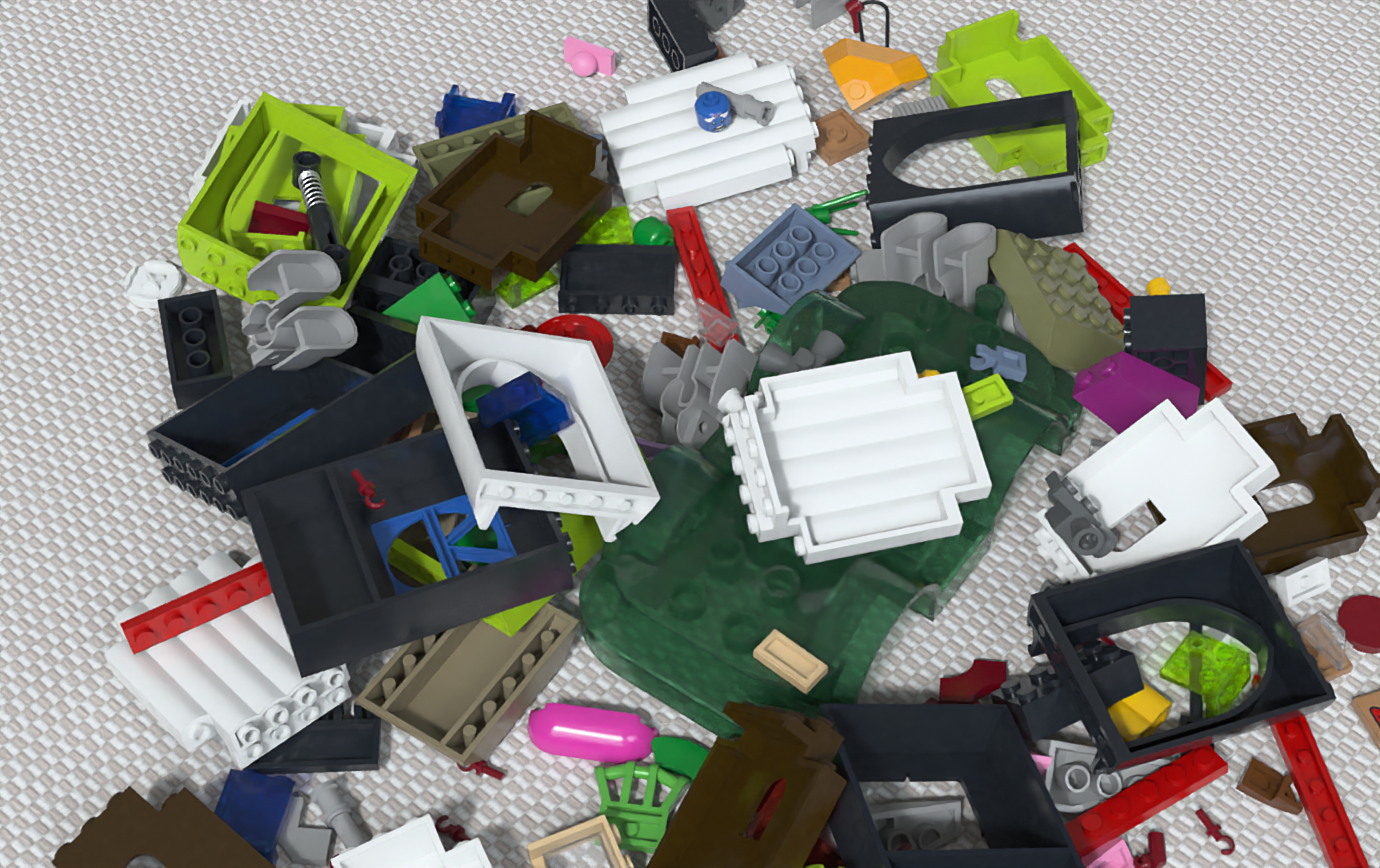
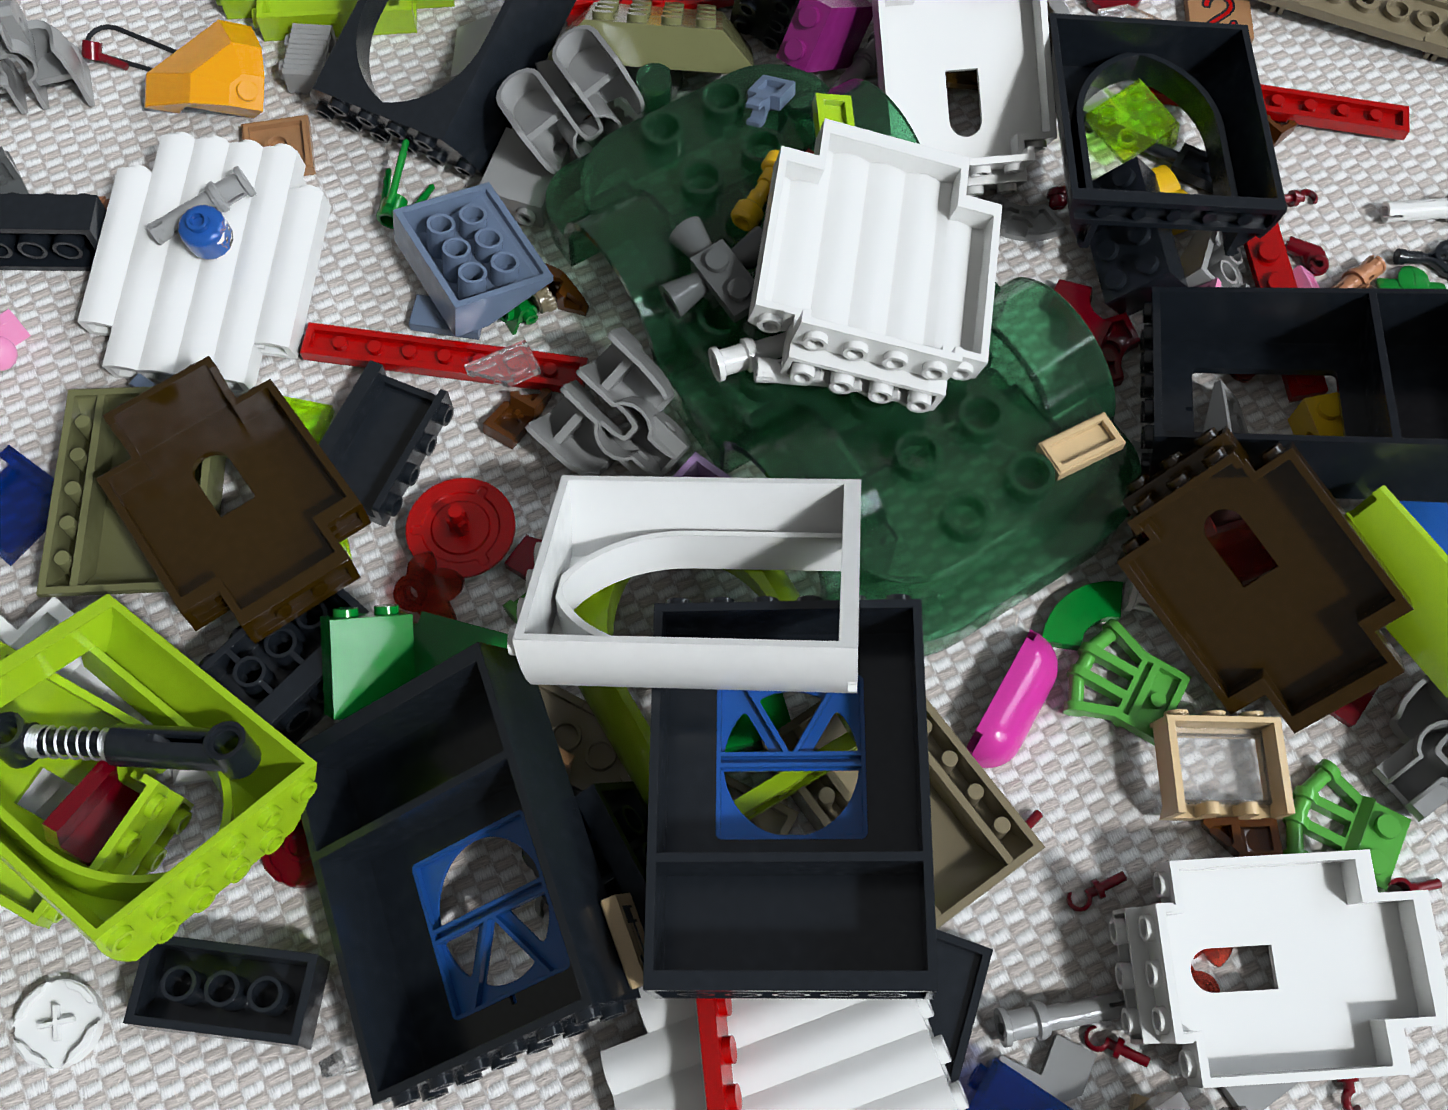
camera: 70 degrees left, 15 degrees up
(290, 332) = (287, 807): light grey piece -> none
(367, 489) = (720, 816): dark red hand -> none
(532, 402) = (661, 584): clear blue panel -> none
(652, 232) = (333, 378): green head -> none
(1076, 518) = (966, 130): dark grey brick -> none

